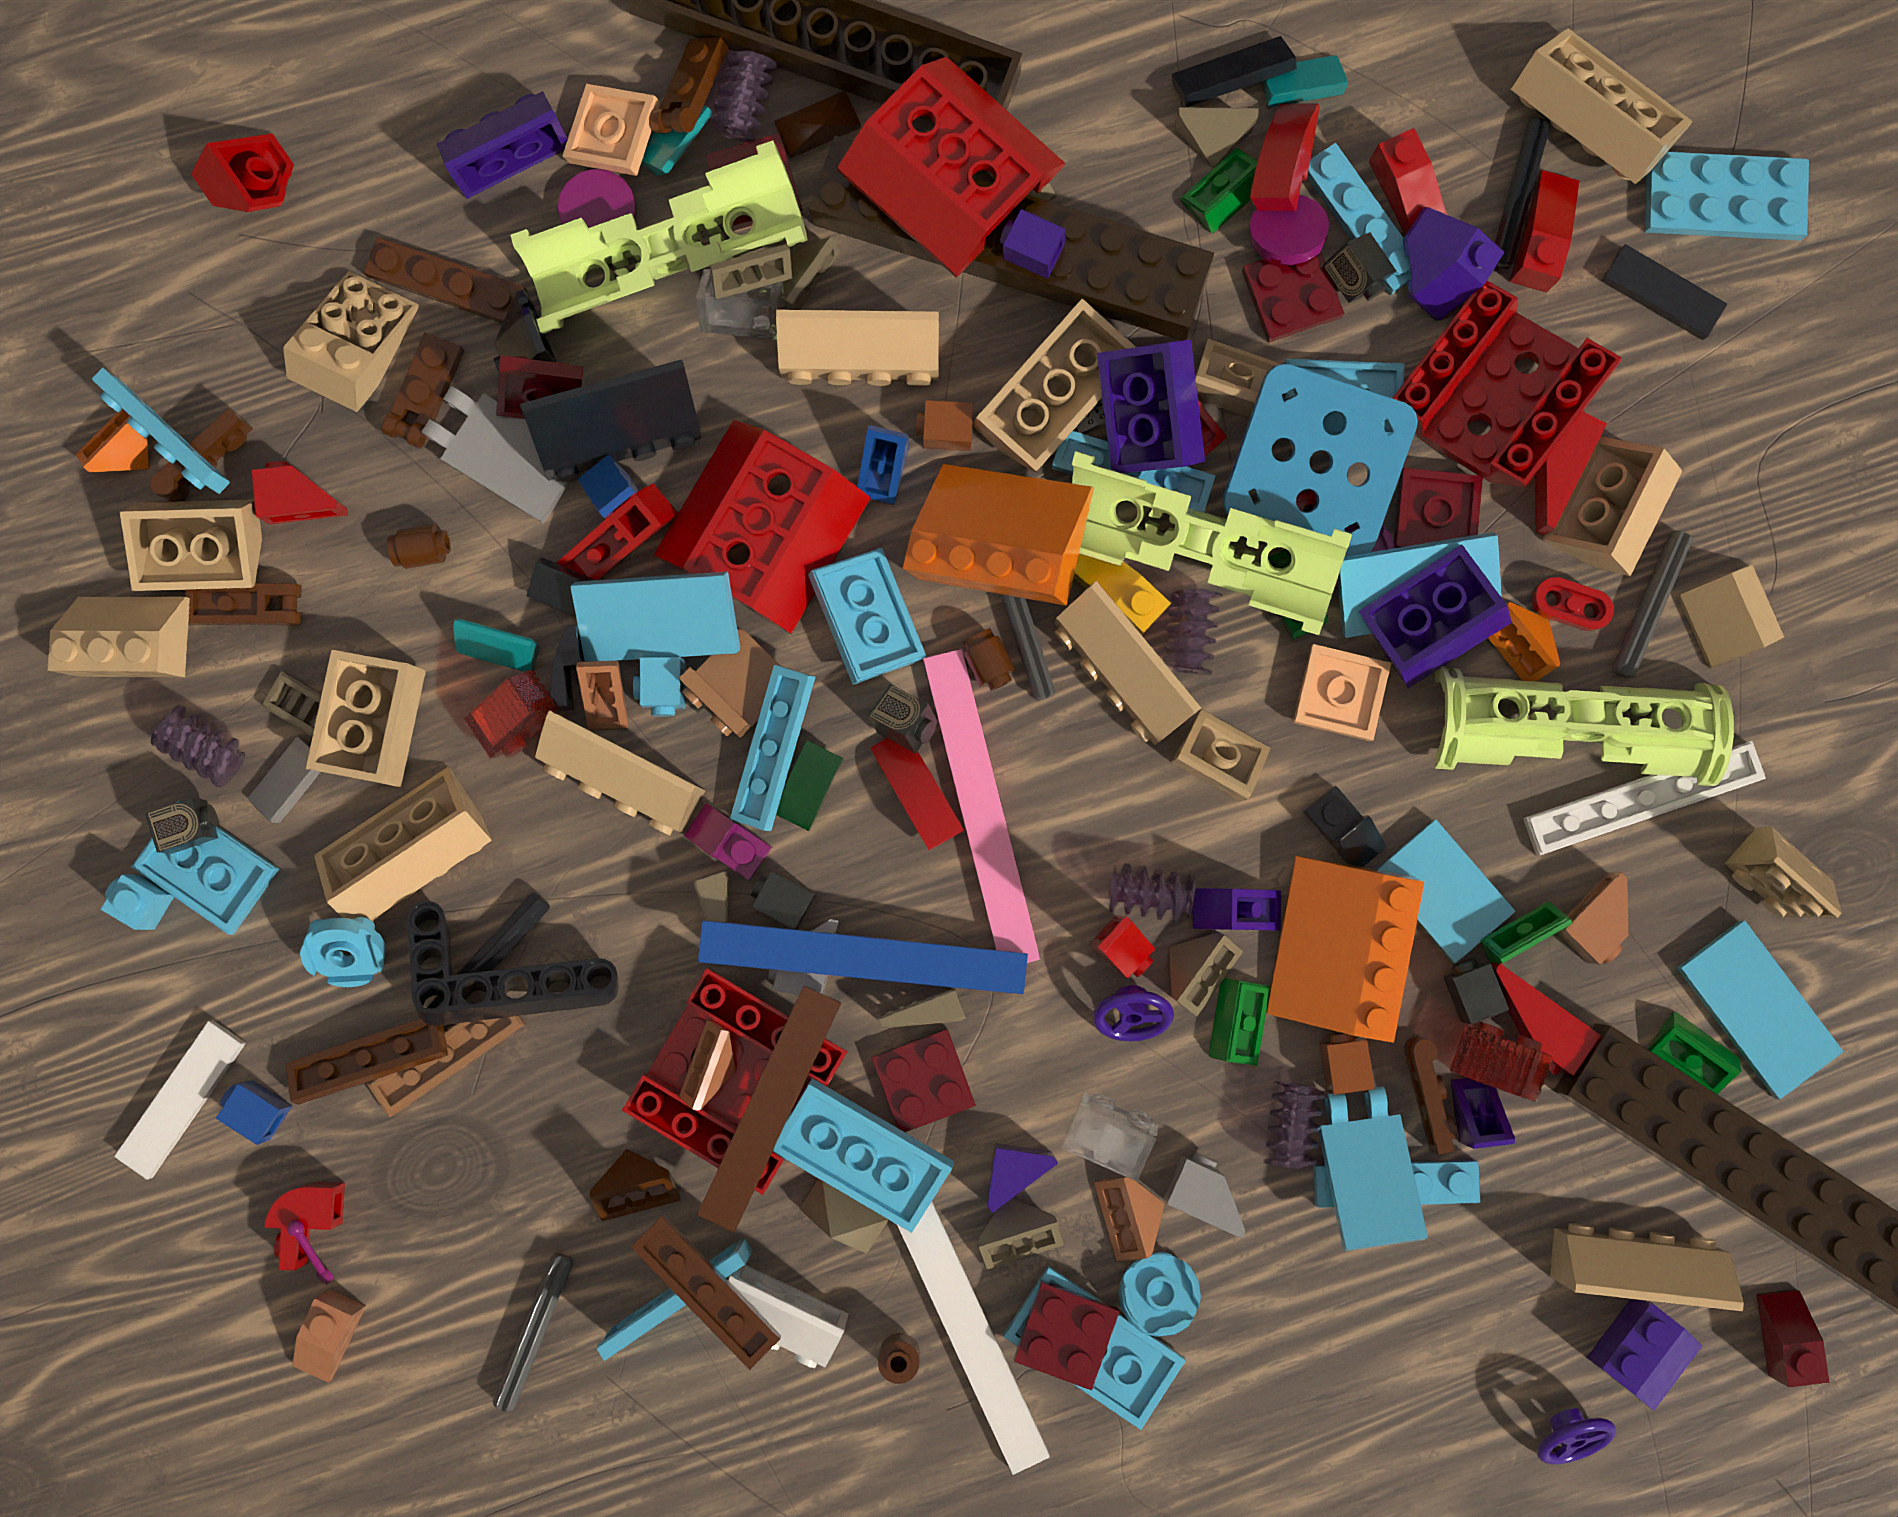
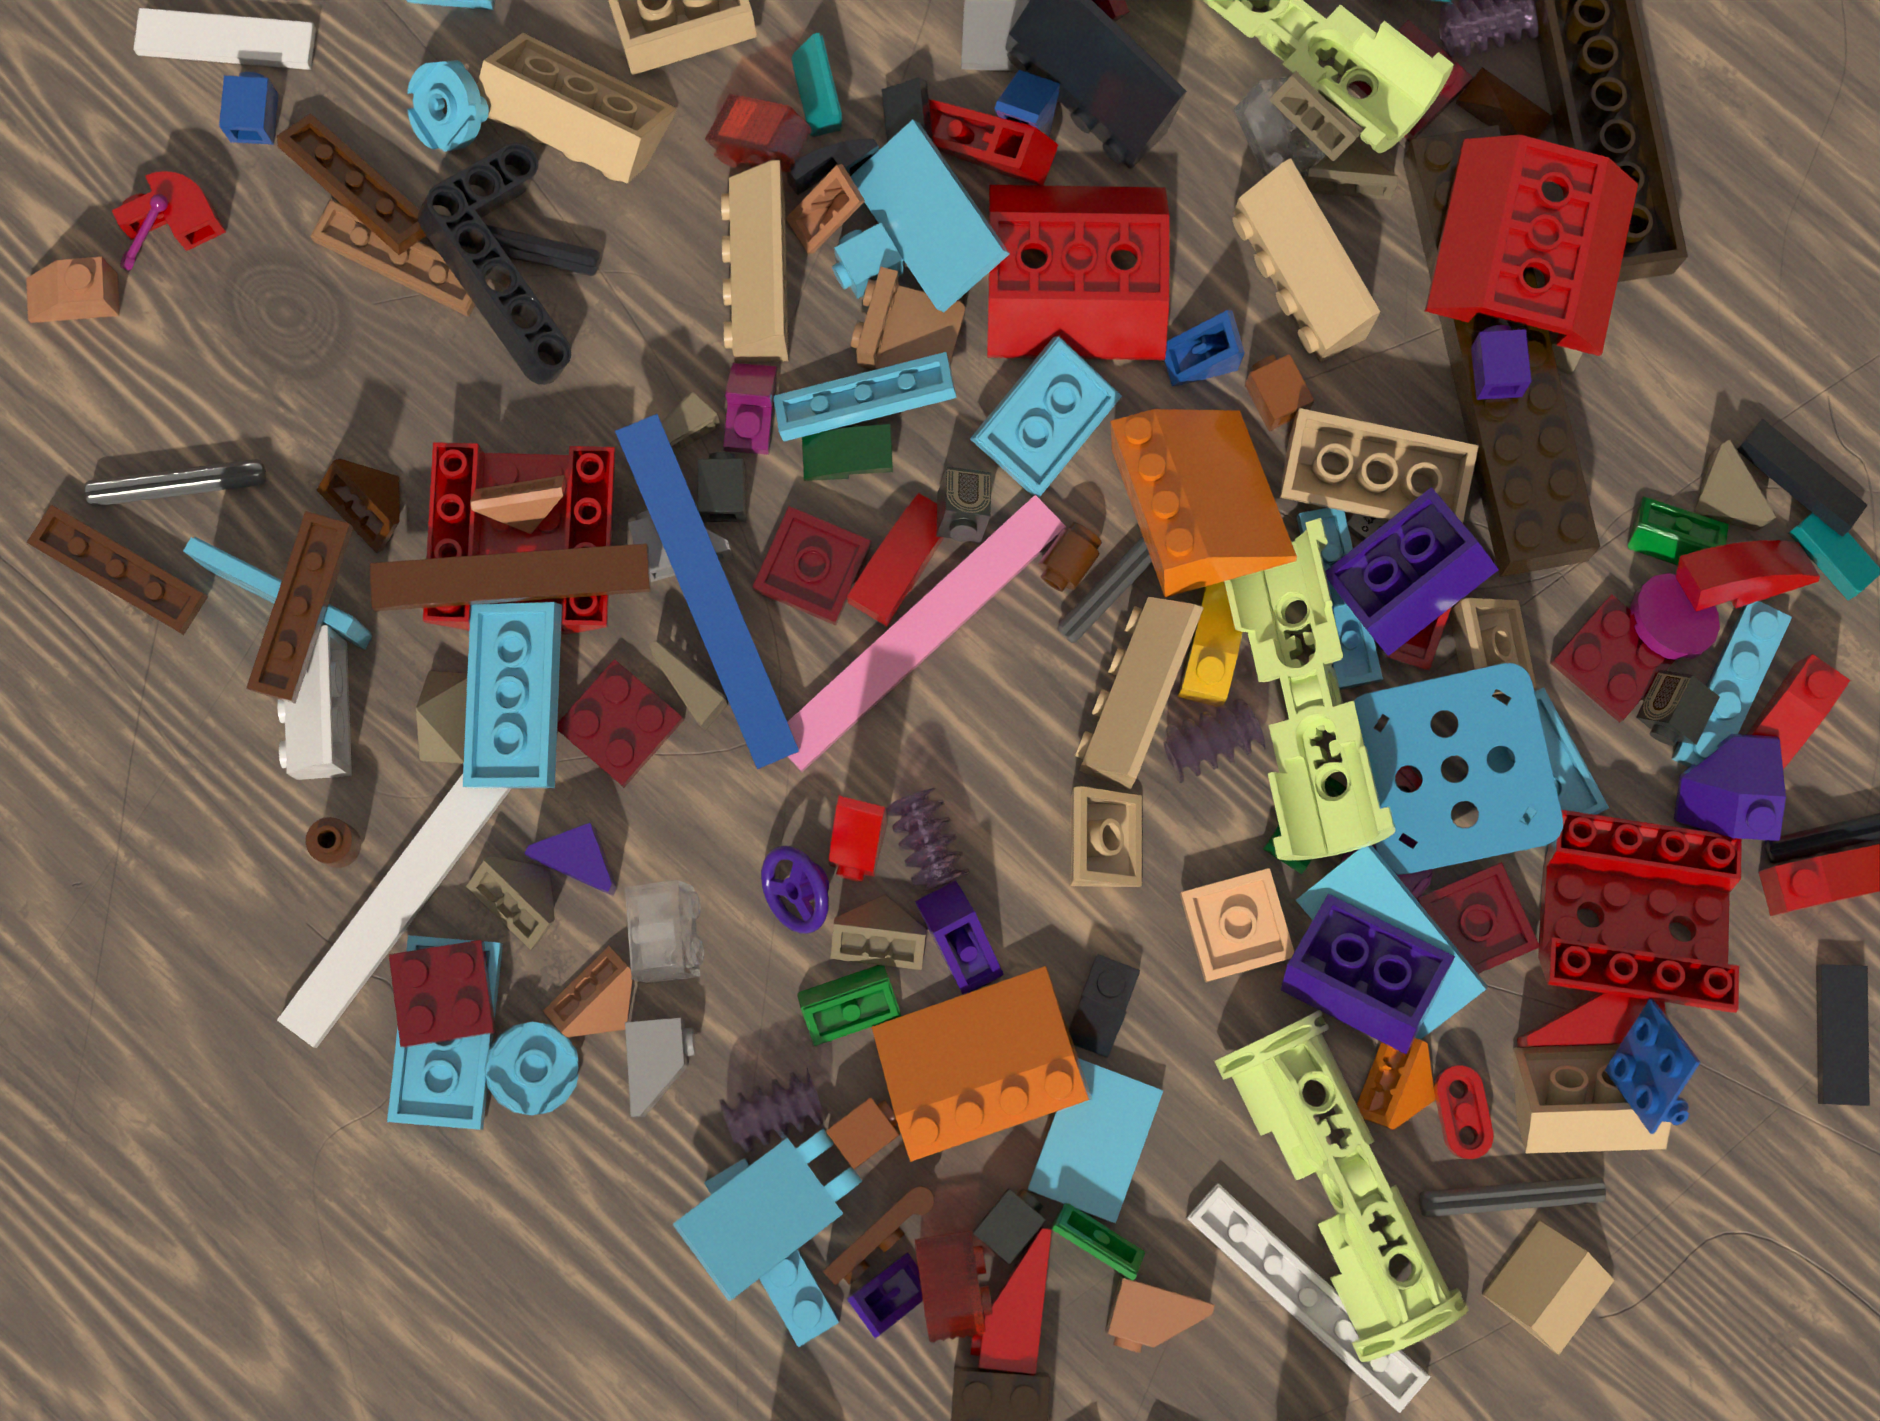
camera: 60 degrees right, 5 degrees down
(579, 1416) = (117, 569): none -> reddish brown plate
(883, 862) = (812, 565): none -> dark red plate
(1631, 445) = (1653, 1069): none -> blue hinge

